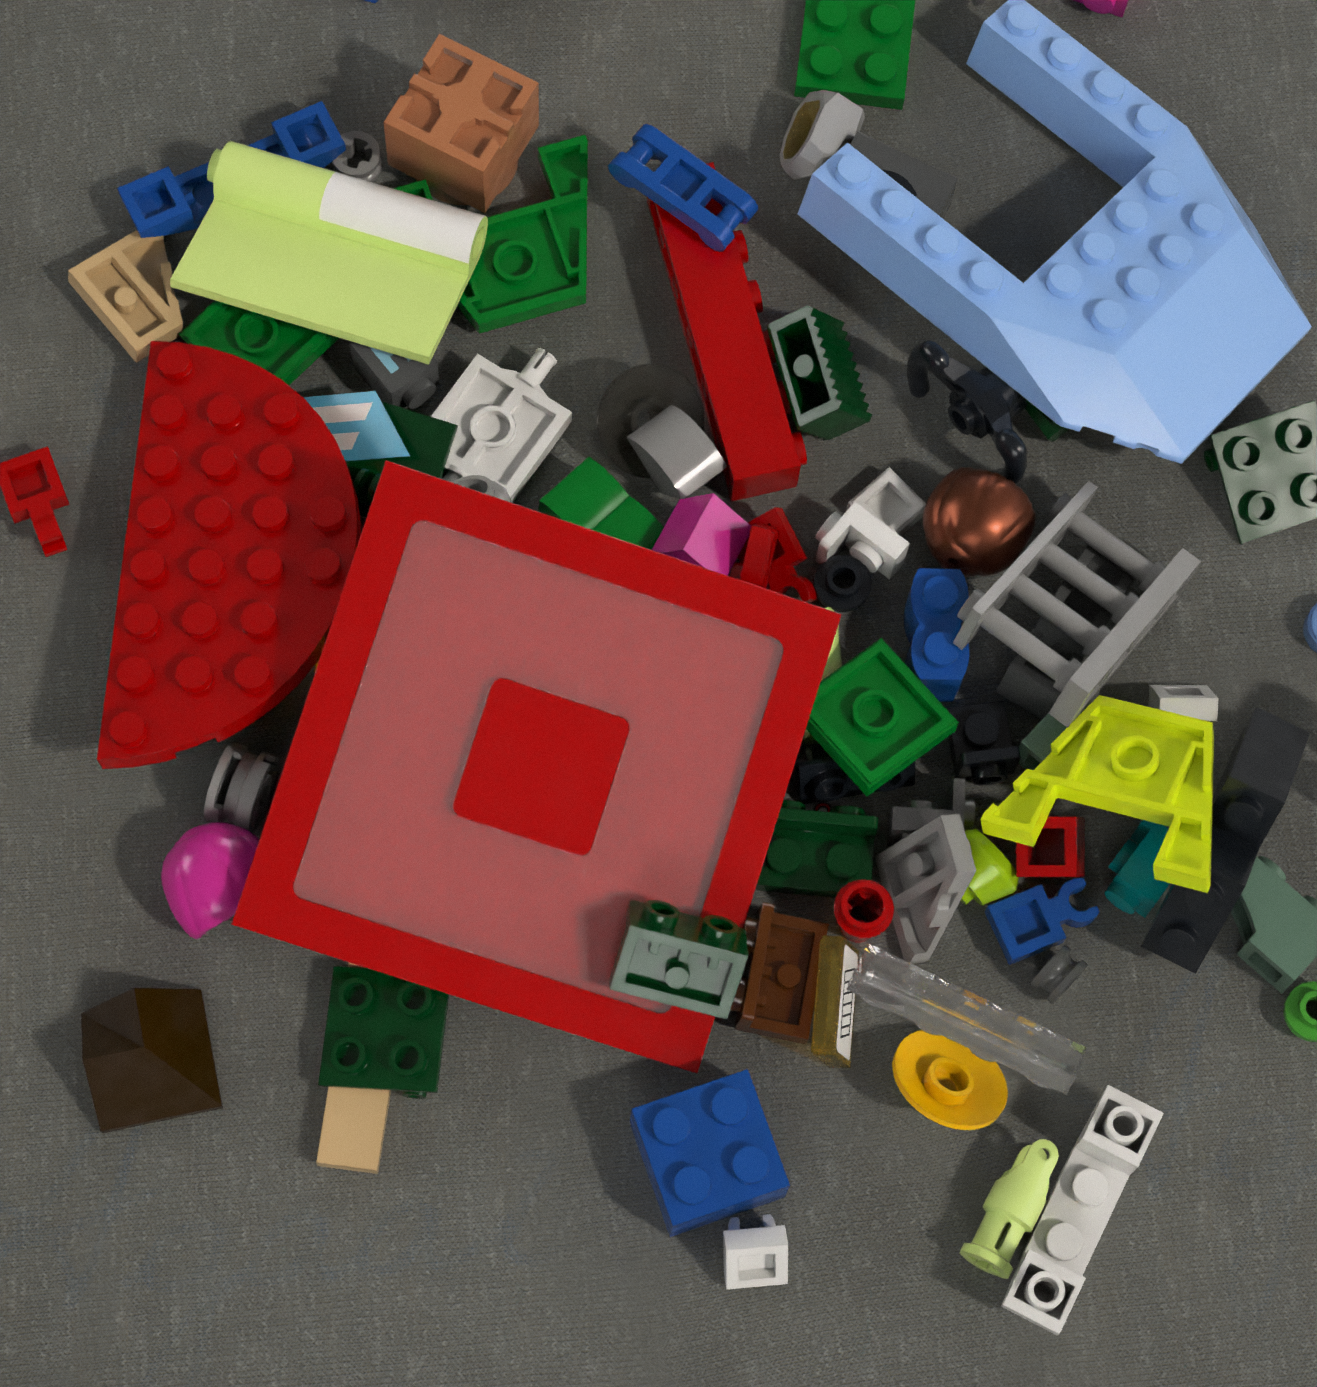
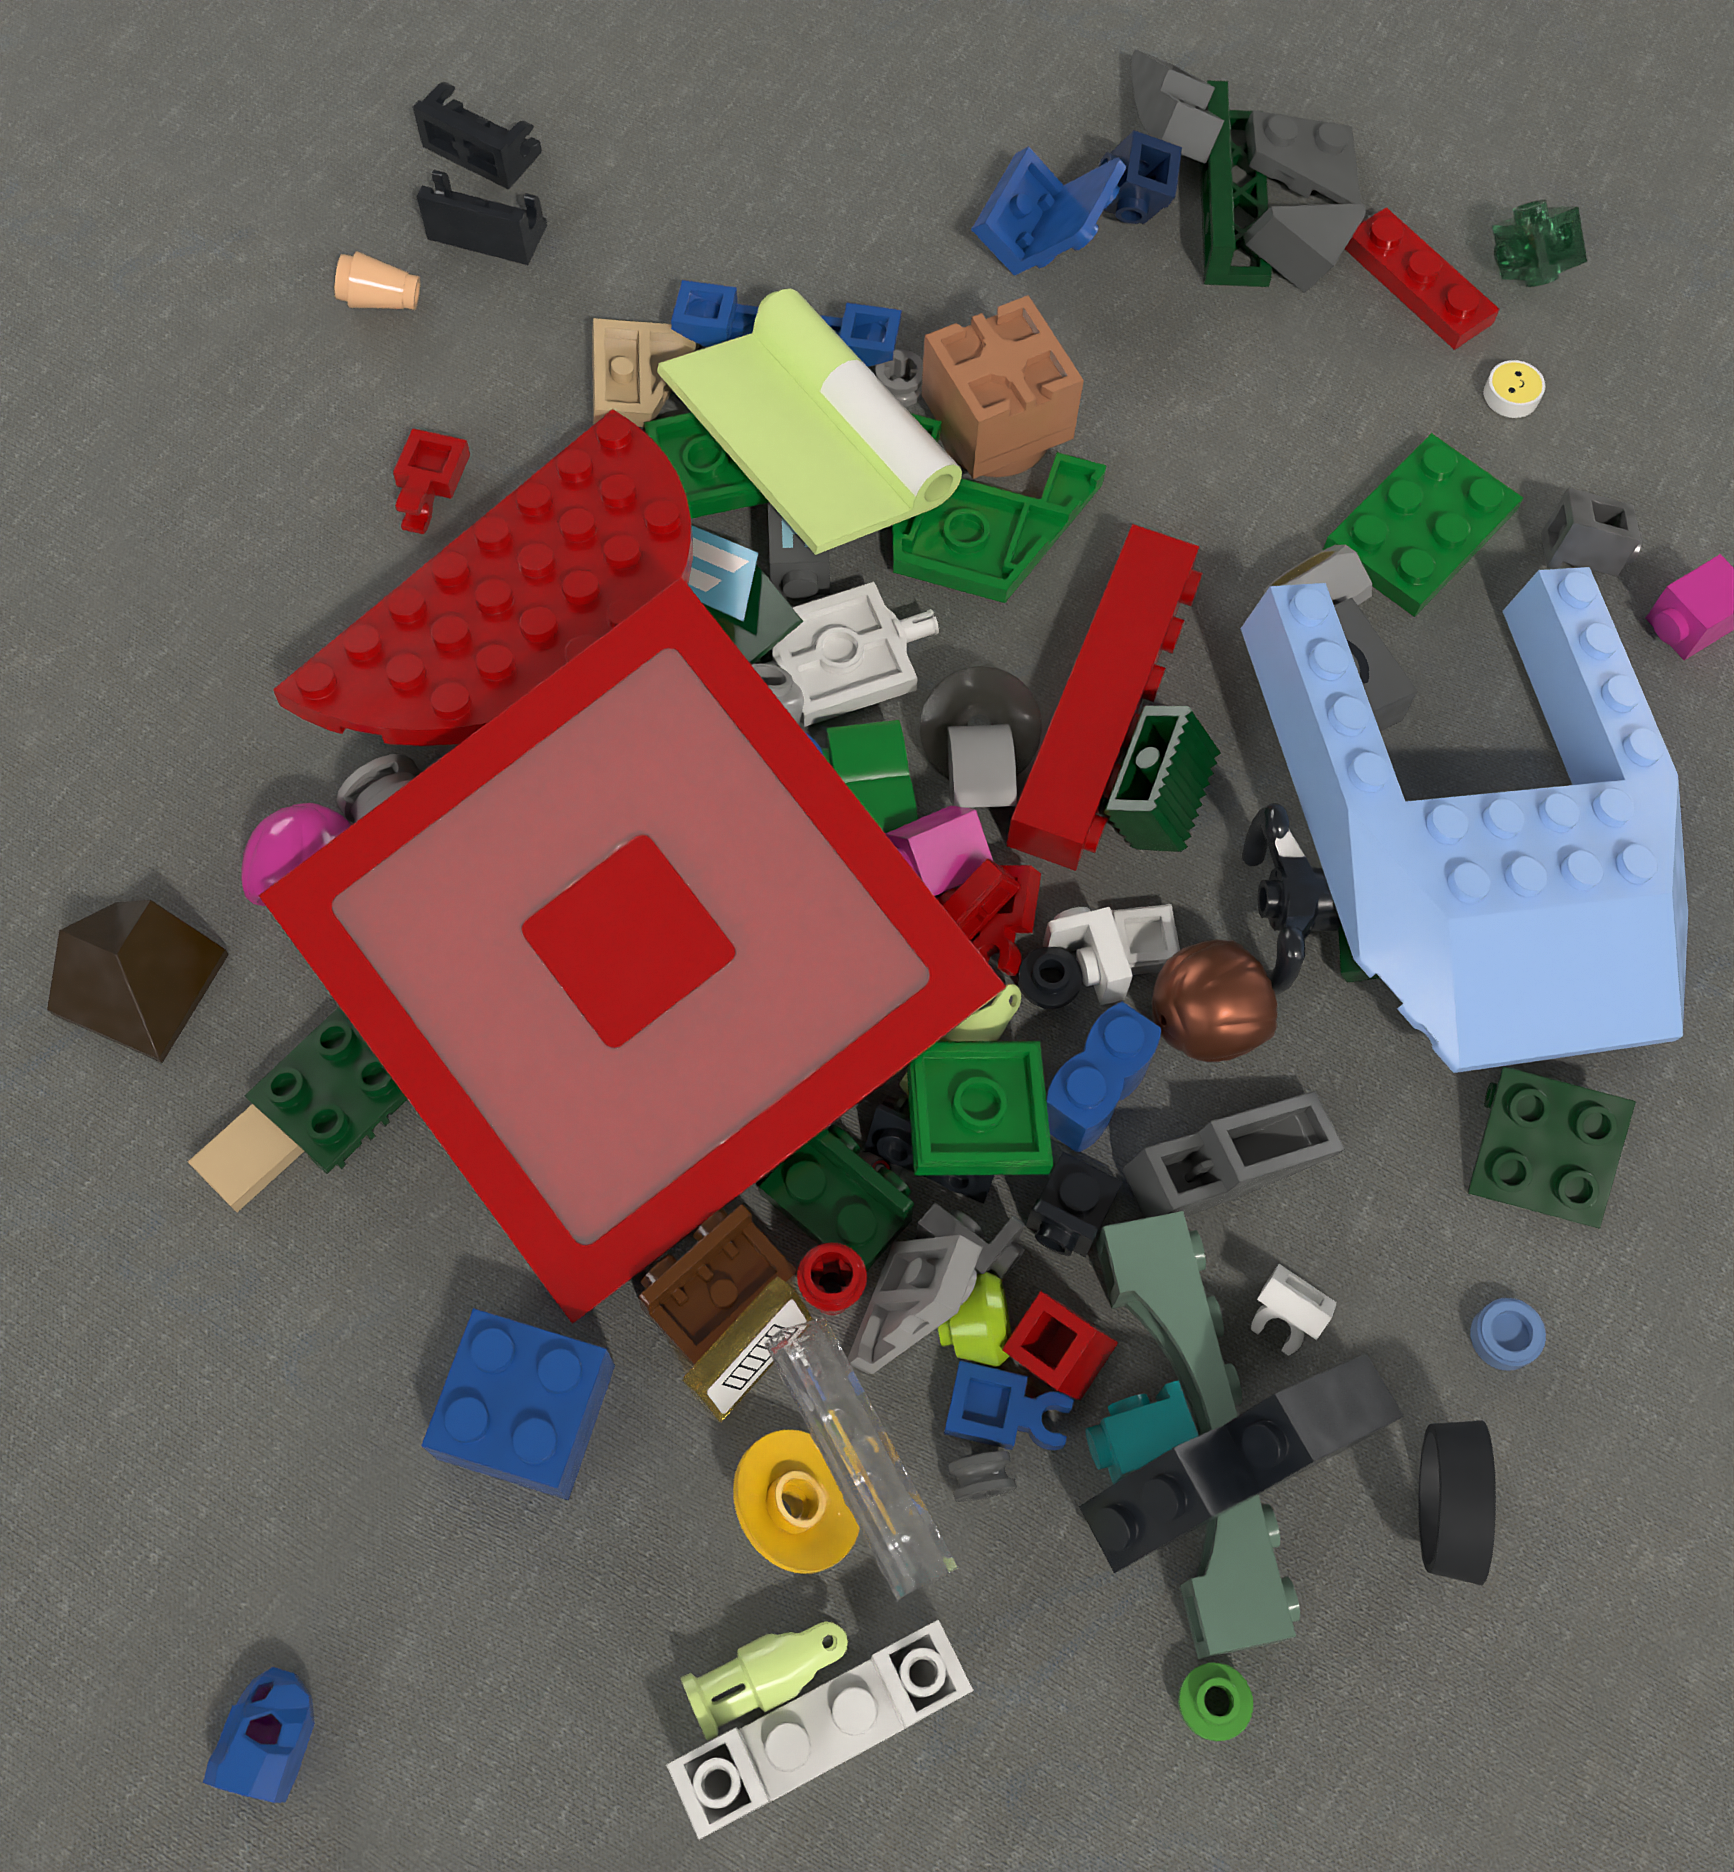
camera: 40 degrees right, 5 degrees down
(680, 958) = (623, 1200): bracket -> none
(683, 186) = (1154, 546): blue plate -> none
(755, 1254) = (488, 1533): white tile -> none
(1102, 646) = (1246, 1192): light grey fence -> none
(1131, 765) = (1188, 1318): neon yellow wing -> none

